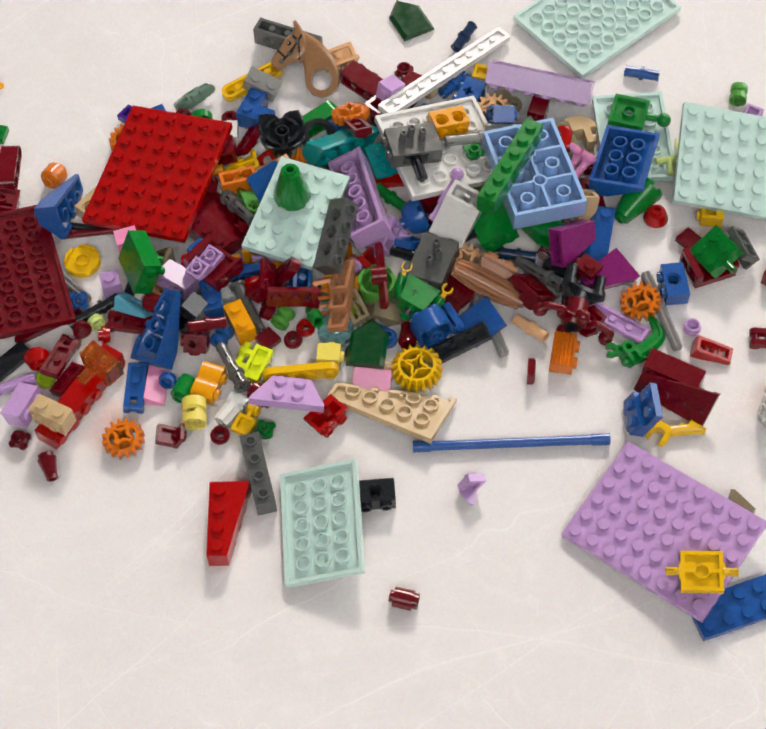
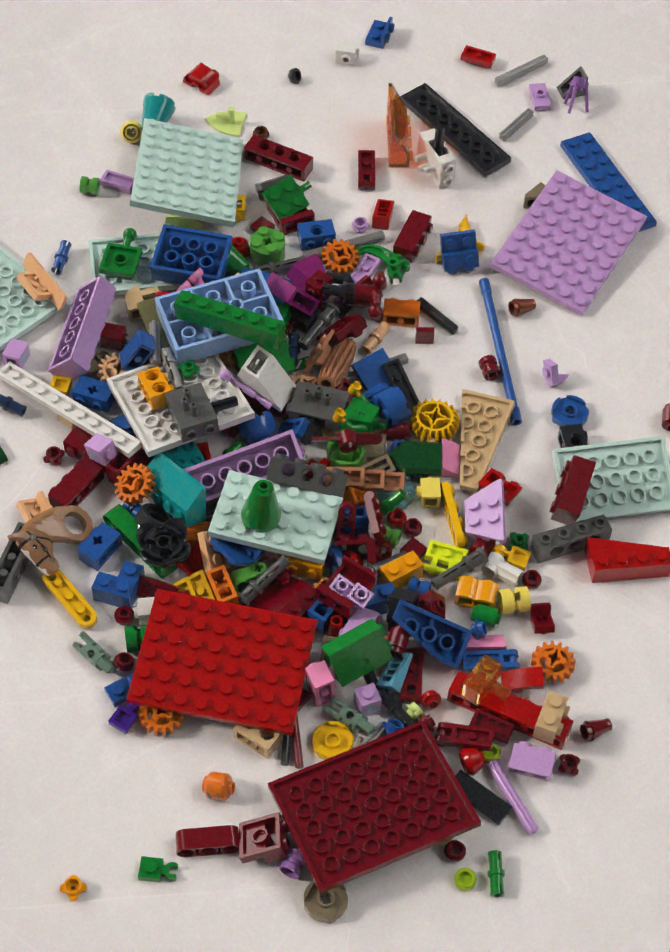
camera: 100 degrees left, 5 degrees down
(57, 208) = (283, 760): blue wedge -> none
(92, 278) = (357, 723): none -> sand green hinge
(107, 408) = (523, 679): none -> red slope
(206, 324) = (421, 587): dark red pin -> none
(263, 82) = (83, 579): light grey brick -> none
(297, 466) = (572, 490): none -> dark red brick
(299, 98) = (99, 546): none -> blue brick
(358, 127) = (167, 462): dark red plate -> none
(421, 509) = (573, 403): none -> blue plate
(484, 427) = (490, 368): none -> dark red wheel
(520, 40) = (16, 352): none -> lavender brick
(561, 388) = (437, 316): none -> black axle
(570, 469) = (521, 306): none -> copper cone
(597, 47) = (40, 283): none -> light nougat bracket
(626, 243) = (278, 266): none -> dark grey pin
(652, 237) = (267, 246): none -> bright green brick
(681, 399) = (443, 221): dark red wing -> none
(702, 572) = (612, 209): yellow plate -> none

